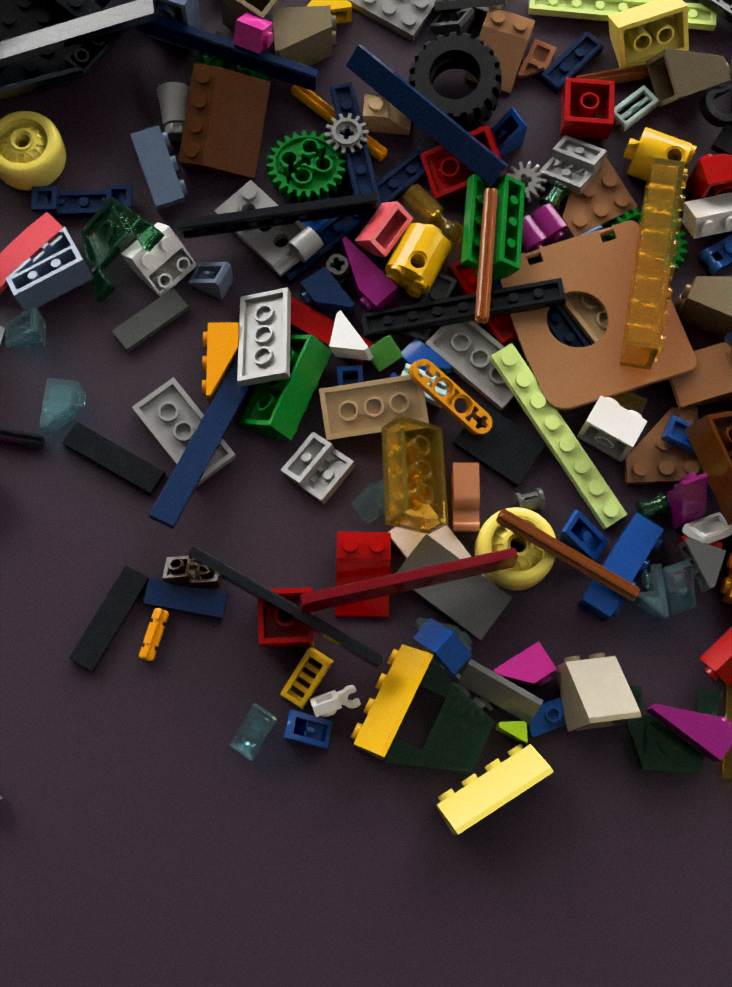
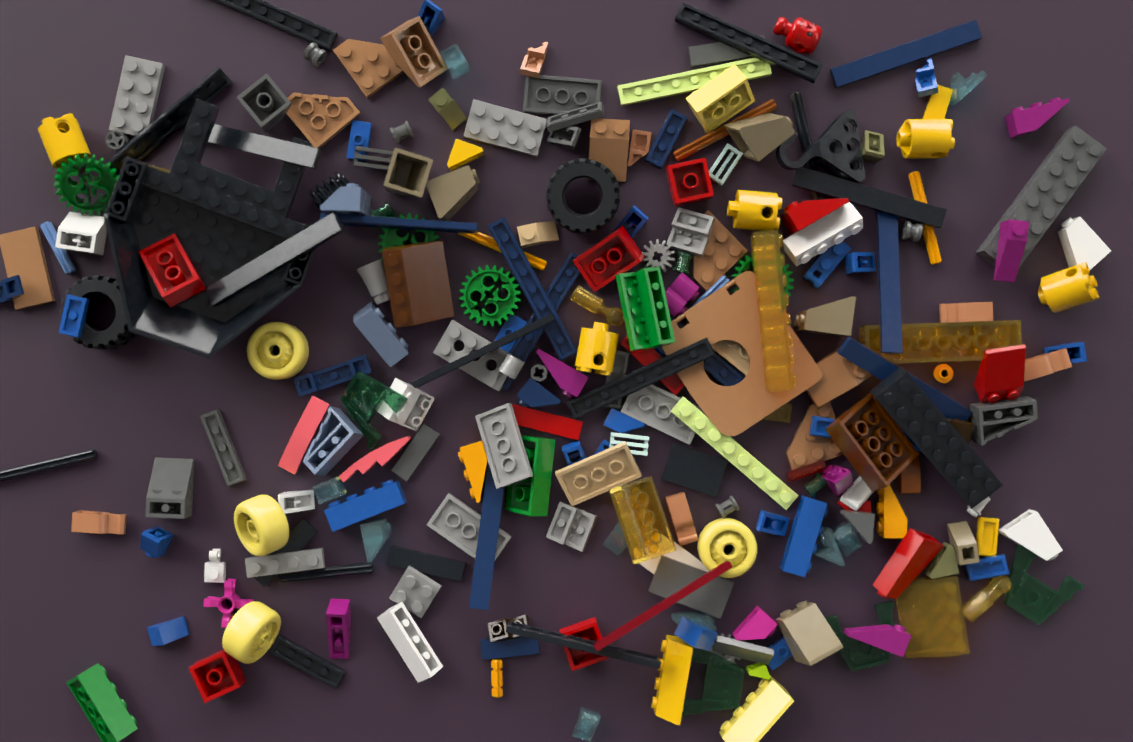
camera: 15 degrees left, 15 degrees up
(55, 547) = (410, 642): none -> white brick
(63, 361) = (365, 506): none -> blue brick
(86, 488) = (415, 591): none -> light grey plate
(108, 306) = (380, 455): none -> coral slope
(109, 618) = (463, 675): black tile -> none
(212, 278) = (448, 407): sand blue slope -> none
(253, 33) = (418, 210): dark pink brick -> none
(298, 672) = (614, 665): yellow slope -> none
(308, 729) = (621, 711): blue slope -> none
(330, 702) = (630, 688): white plate -> none
(340, 126) = (506, 258): light grey gear -> none
(346, 341) = (564, 430): white slope -> none
(359, 559) = (625, 592): red slope -> none
(384, 229) = (565, 336): coral brick -> none
(384, 353) = (592, 428): bright green slope -> none
(426, 115) = (569, 235): dark blue tile -> none
(448, 400) = (651, 455): light orange beam -> none
(486, 255) = (647, 338): dark orange axle -> none
(567, 555) = (765, 548): dark orange axle -> none
(612, 428) = (771, 440): white brick -> none
(643, 484) = (805, 471): none -> clear red tile

